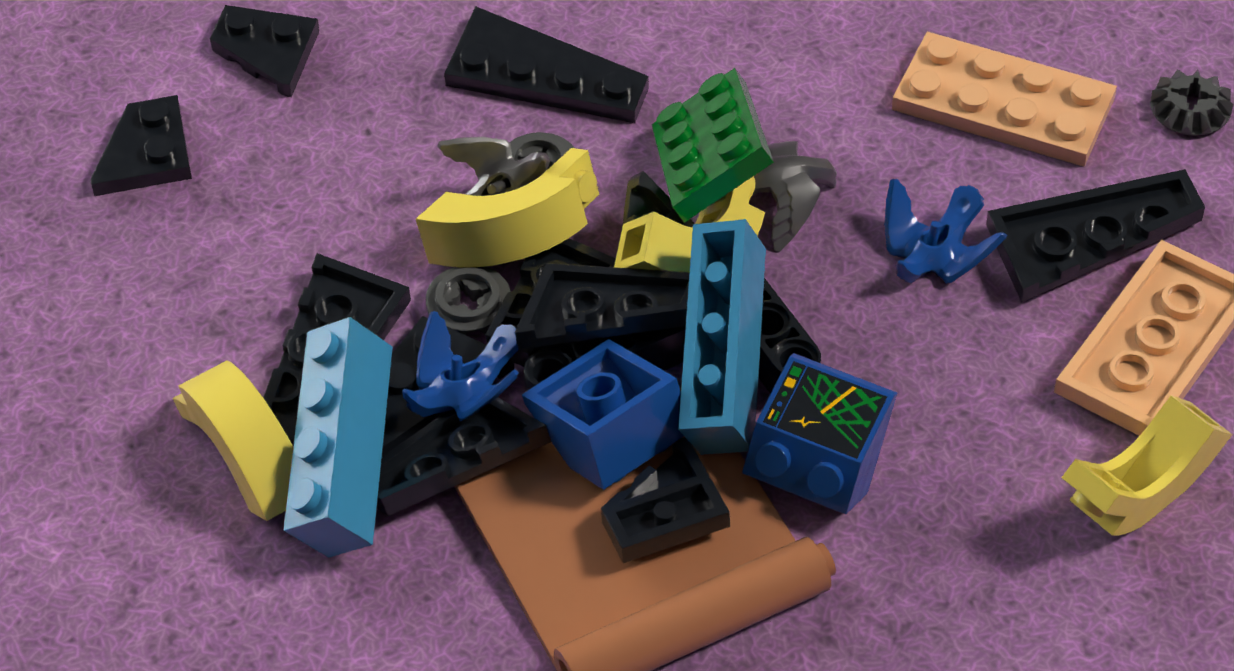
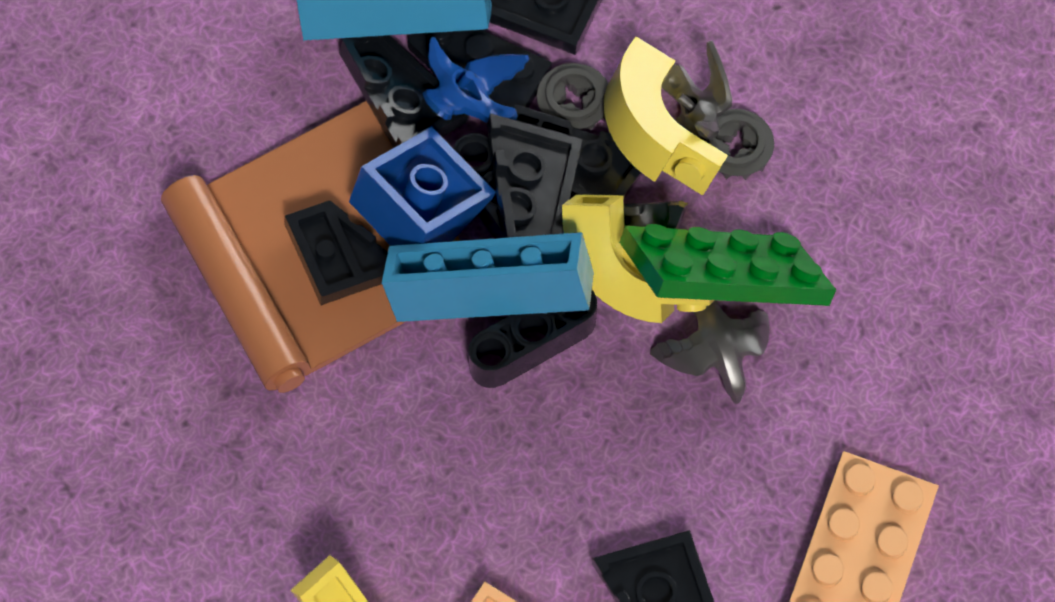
camera: 85 degrees right, 15 degrees up
(531, 67) = (863, 132): black wing -> none
(820, 434) = (397, 367): slope -> none
(940, 245) = (656, 483): blue animal -> none

